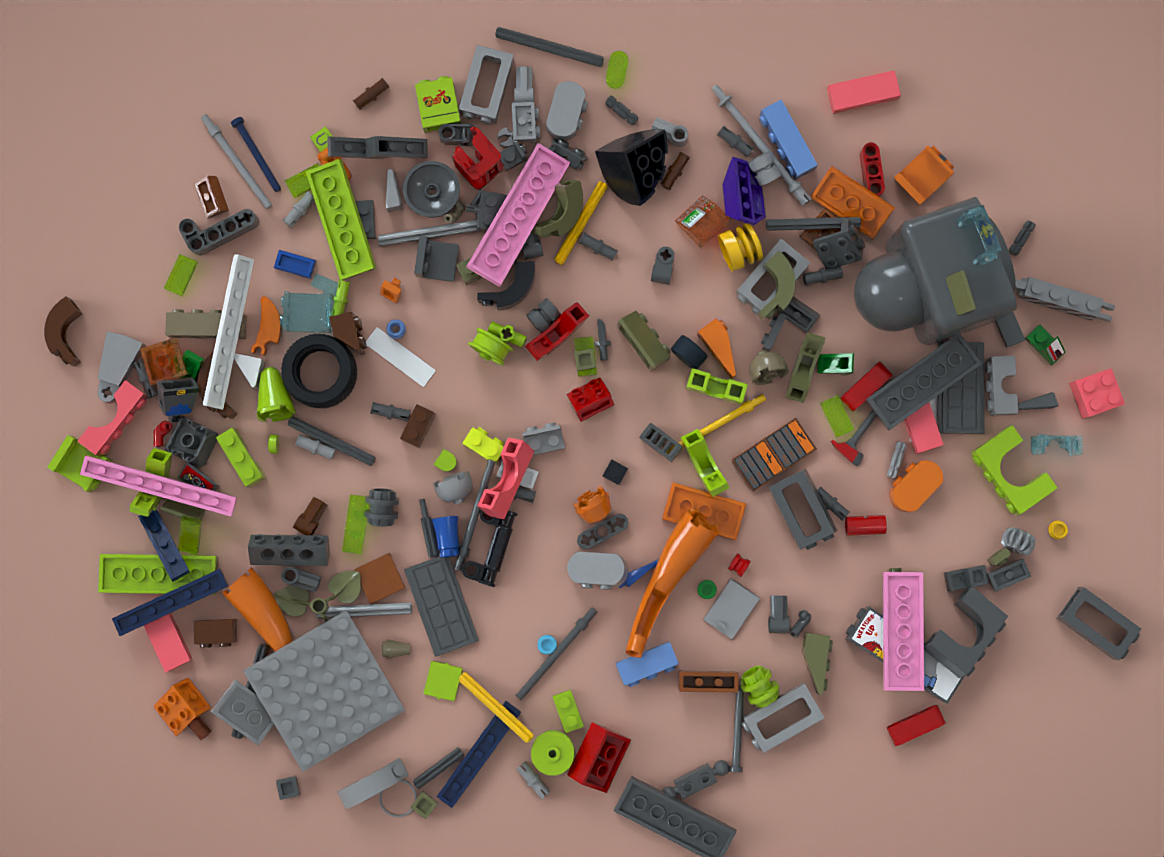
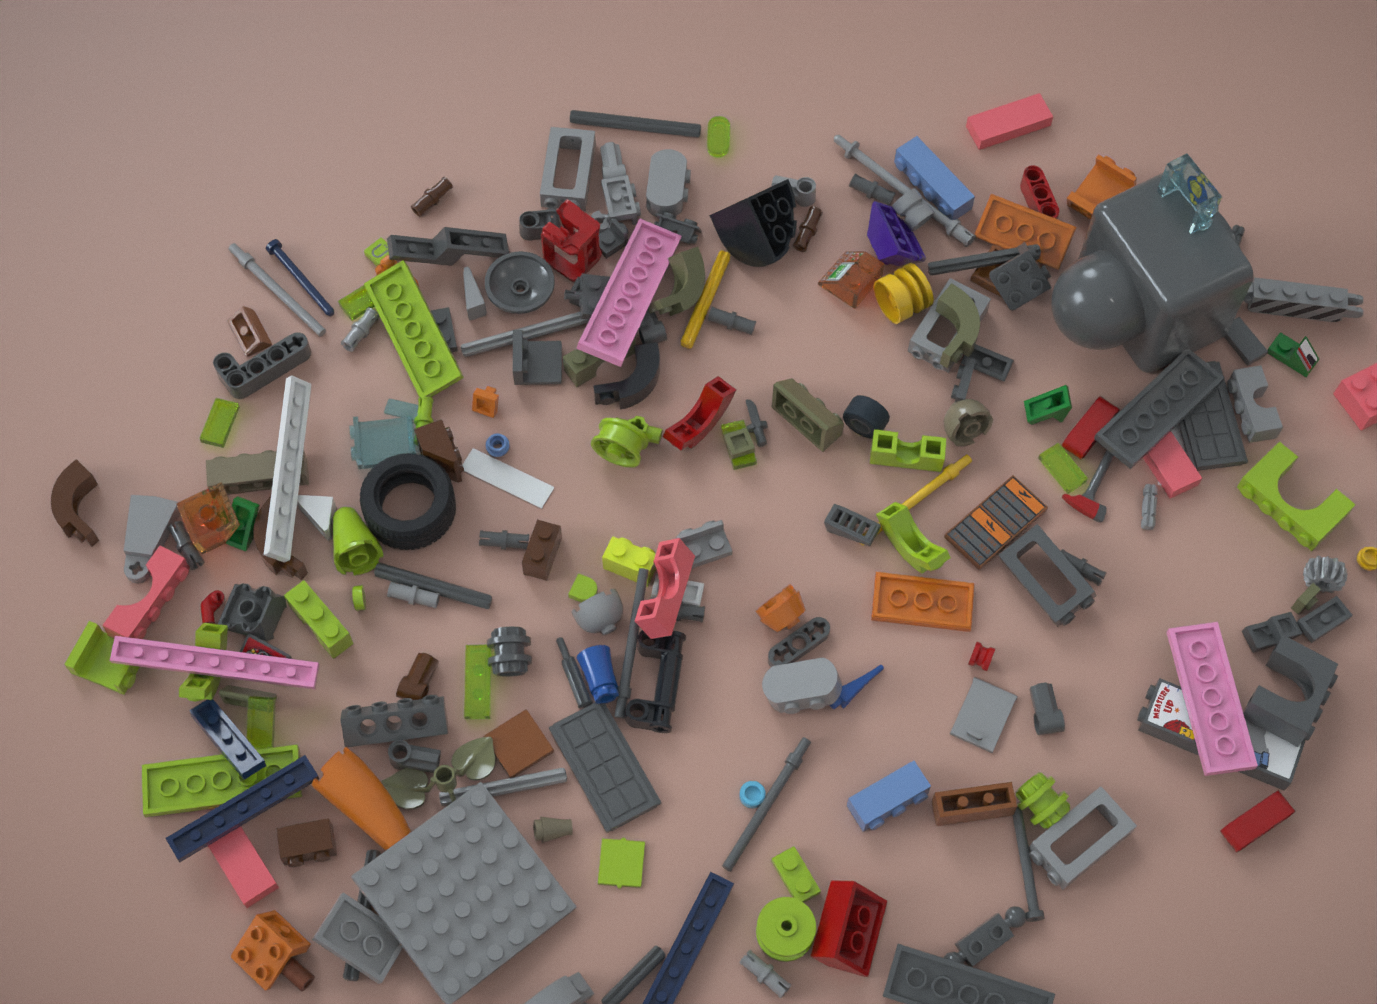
camera: 10 degrees left, 20 degrees down
(177, 397) = (228, 556): dark grey torso -> none
(269, 326) = (338, 465): orange piece -> none
(294, 264) = (361, 391): blue tile -> none
(437, 103) = (512, 194): lime panel -> none
(453, 216) = (554, 305): dark tan arm -> none
(496, 707) = (700, 880): yellow axle -> none
(544, 315) = (679, 402): dark grey wheel -> none
(590, 399) = (755, 489): red bracket -> none
(615, 472) = (801, 571): black plate -> none
(621, 110) = (732, 176): dark grey axle -> none
(663, 269) = (814, 331): dark grey piece -> none
(680, 553) = (903, 651): orange brick -> none
(706, 589) = (947, 694): green plate -> none
(717, 341) = (901, 406): orange slope -> none
(804, 367) = (1010, 411): olive arch -> none
(804, 619) = (1081, 709): dark grey arm -> none
(816, 656) = (1105, 752): olive slope -> none
(822, 275) = (1008, 315): dark grey pin -> none
(865, 526) = (1130, 586): red pin -> none
(916, 485) = (1180, 531): orange brick -> none
(960, 293) = (1185, 262): olive slope -> none
(1045, 401) = (1306, 415): dark grey slope -> none
(1071, 444) = (1352, 455): clear light blue piece -> none

